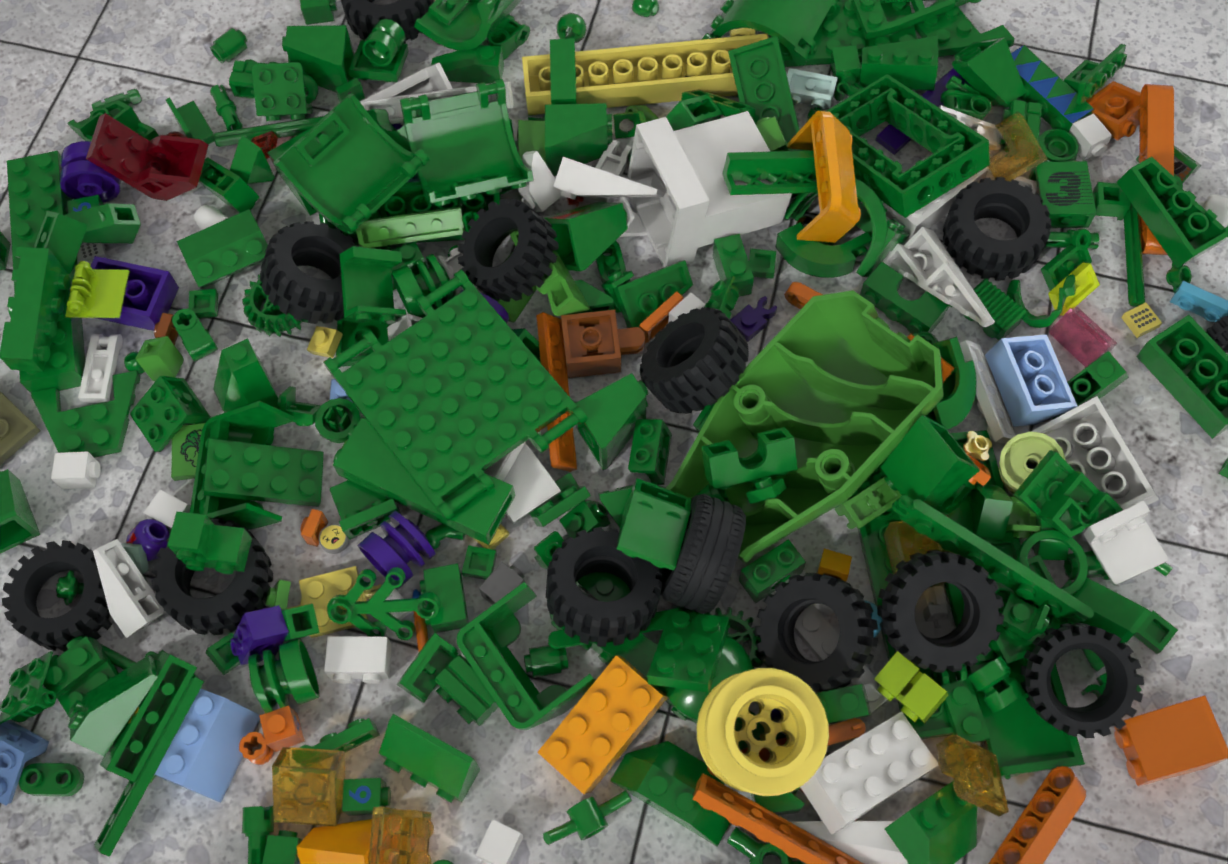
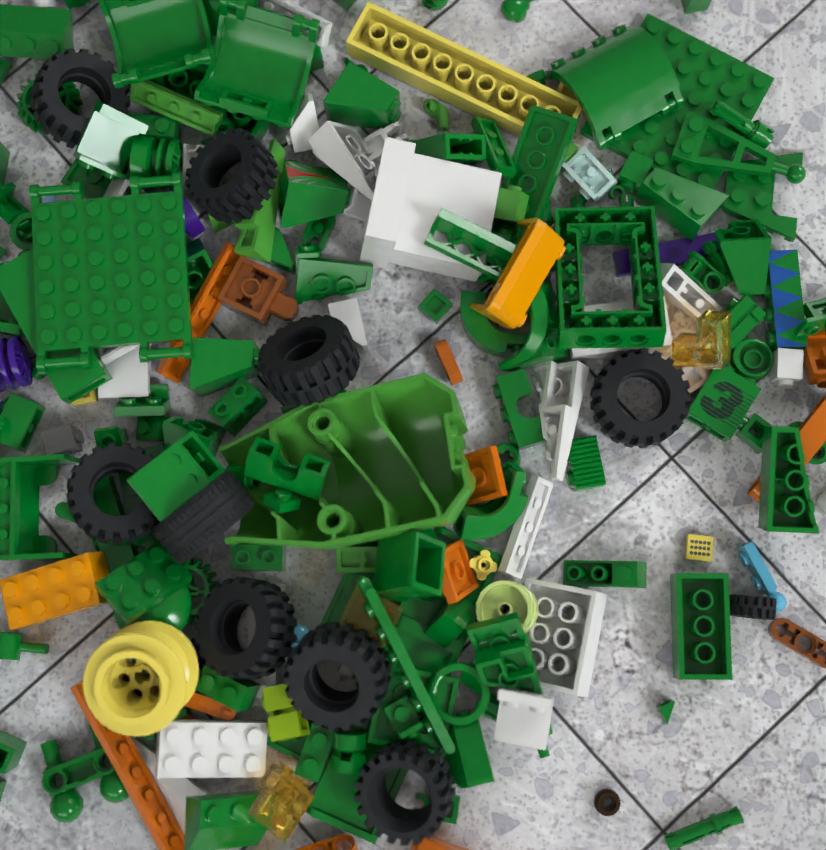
camera: 35 degrees right, 15 degrees up
(324, 341) = (62, 159): light yellow plate -> none
(479, 562) = (58, 411): green plate -> none
(531, 137) = (323, 83): bright green hinge -> none
(545, 661) = (47, 516): green brick -> none
(562, 71) = (389, 37): green tile -> none
(637, 117) = (425, 125): green bracket -> none
(660, 317) = (321, 302): orange tile -> none
(667, 781) = (68, 650): green wedge -> none
(724, 296) = (378, 317): green hinge -> none
(732, 261) = (408, 294): green brick -> none
(751, 320) = (392, 348): dark purple plate -> none
(834, 564) = (301, 587): light orange brick -> none
(1021, 520) = (462, 648): bright green bracket -> none
(1030, 379) = (565, 540): light blue slope -> none
(1042, 321) = (620, 497): green helmet -> none
(1063, 239) = (697, 445): green pin -> none
(1068, 259) = (677, 463): green hinge -> none
(1082, 336) = (640, 531): clear pink panel -> none
(1085, 284) = (663, 488): neon yellow plate -> none
(1134, 258) = (733, 497): green axle -> none
(1155, 632) = (503, 790): green plate -> none
(1176, 276) = (756, 534): green plate -> none

